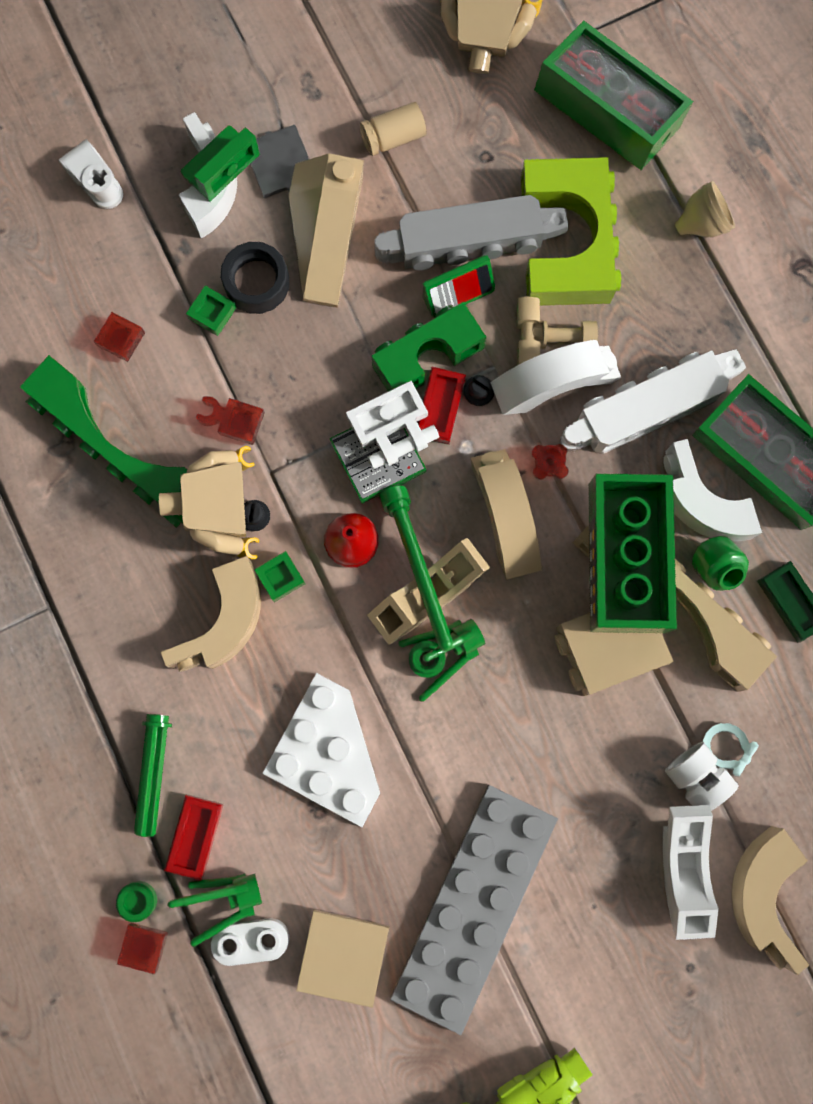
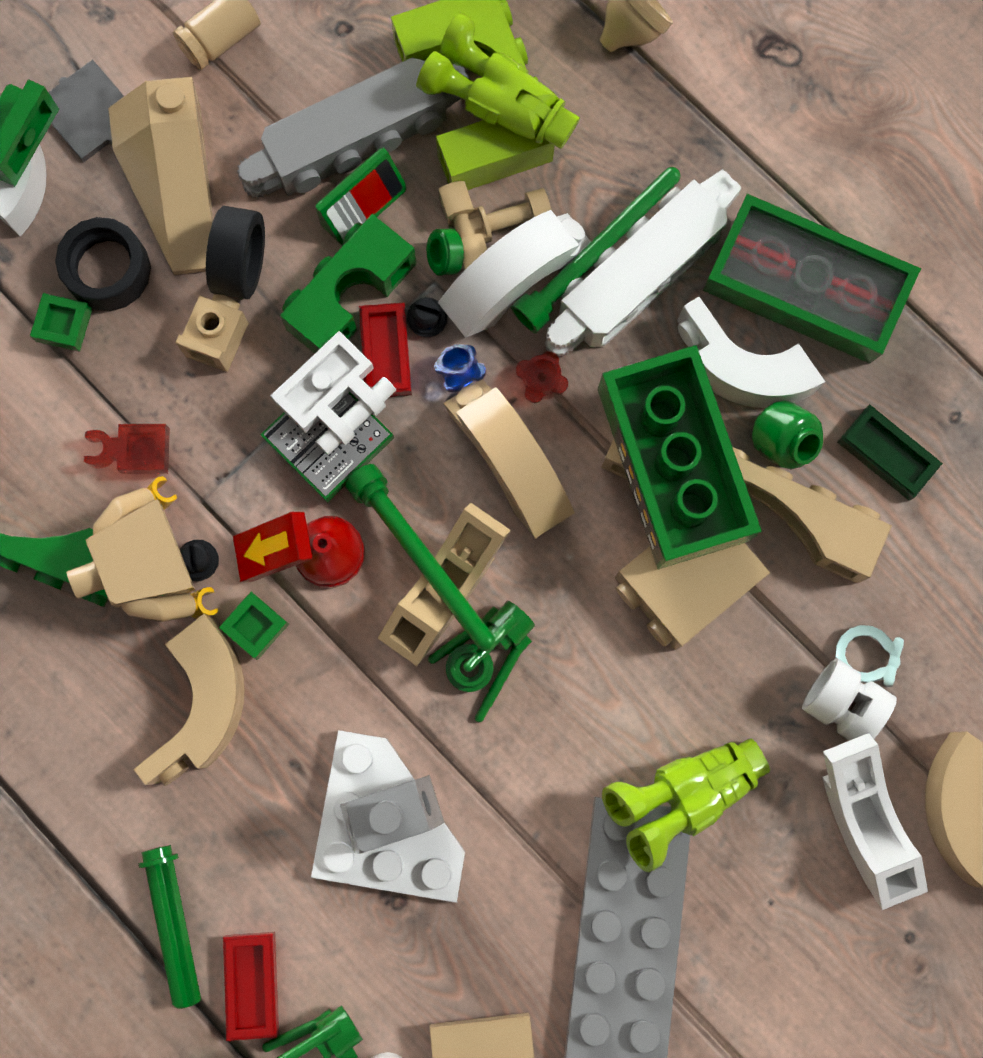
camera: 20 degrees left, 0 degrees up
(312, 523) = (272, 547): none -> red tile
(319, 363) = (214, 346): none -> tan brick
(336, 746) = (392, 815): none -> light grey torso
(354, 299) = (235, 252): none -> black tyre
(491, 427) = (458, 357): none -> clear blue plate
(508, 346) = (445, 252): none -> green tile
(561, 409) = (535, 308): none -> green piece
(565, 806) = (696, 790): none -> lime piece
(588, 243) = (503, 94): none -> lime piece

